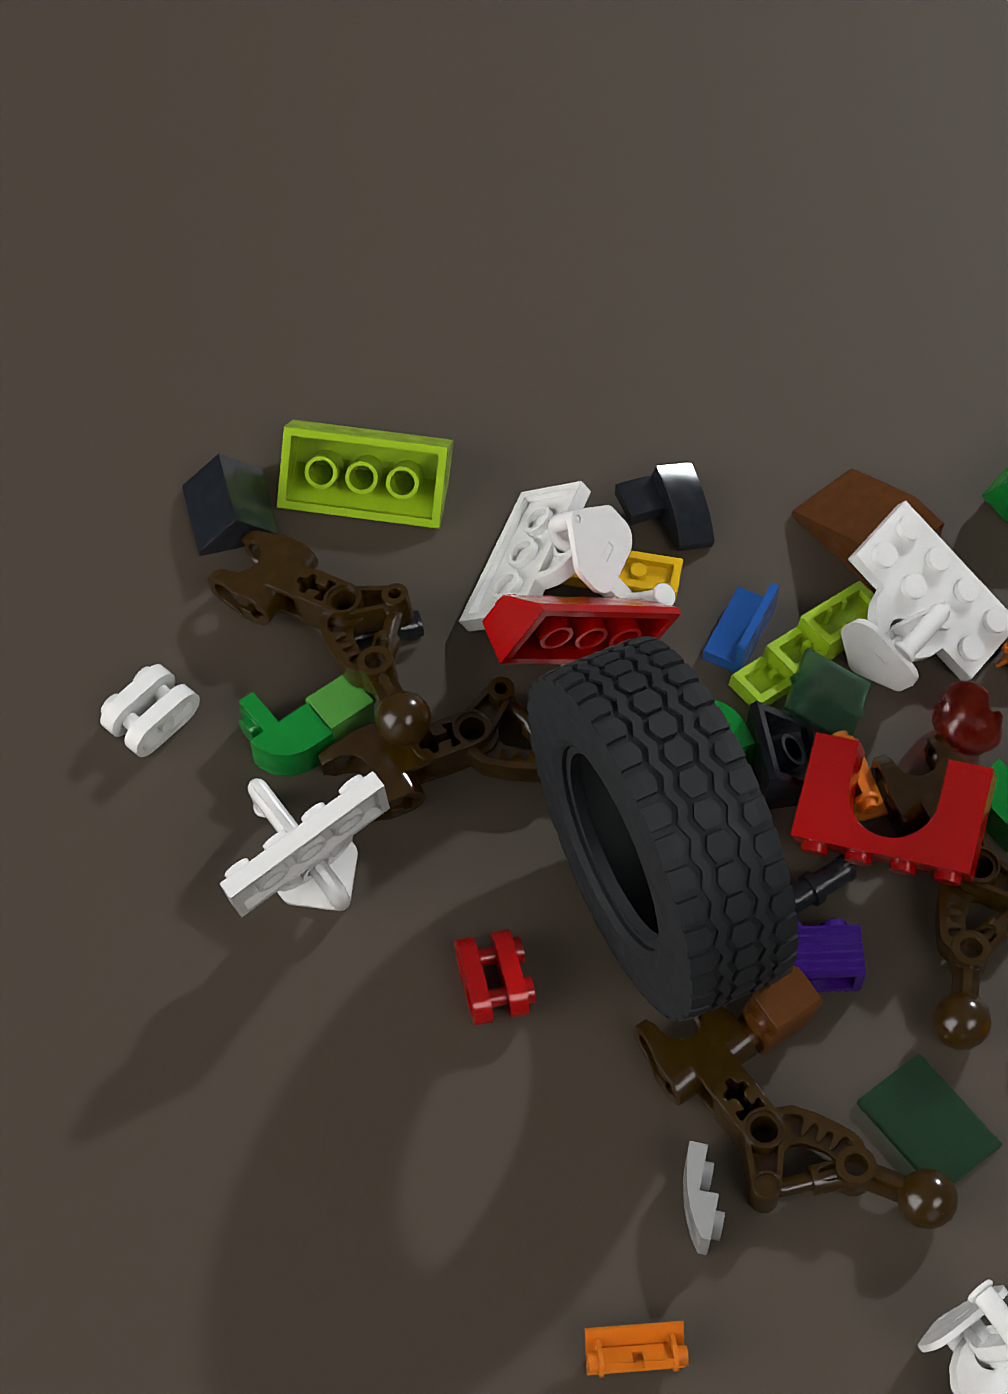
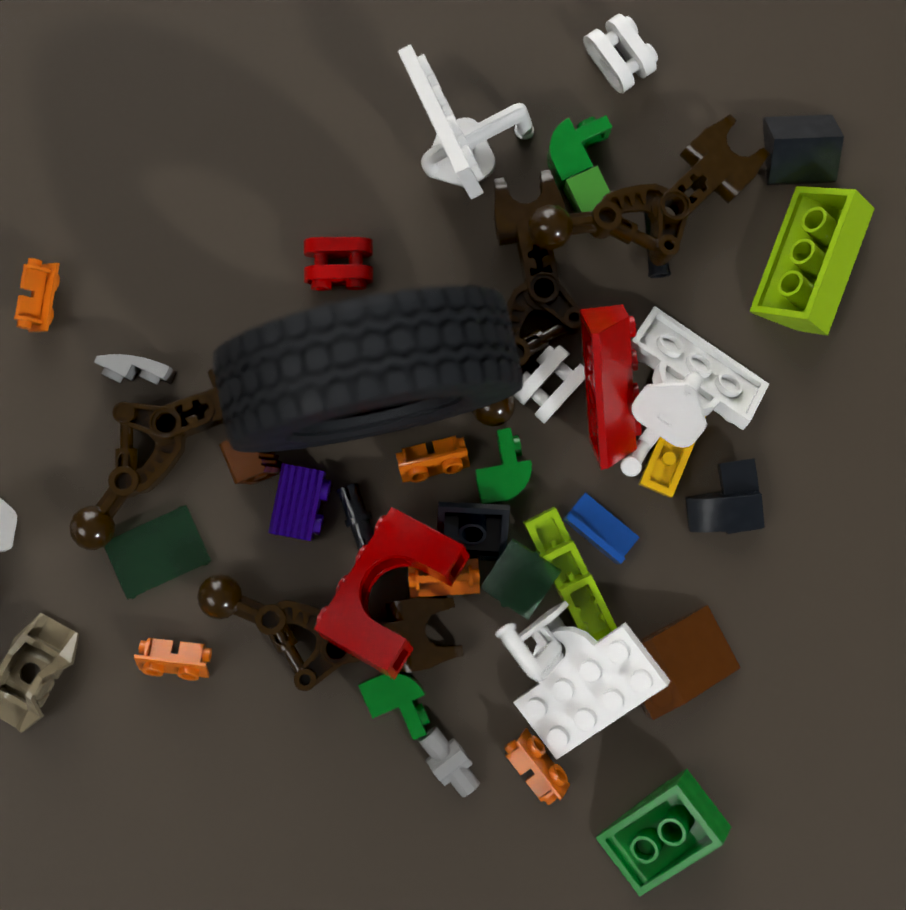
camera: 100 degrees right, 25 degrees up
(966, 719) = (468, 683): clear red hair -> none

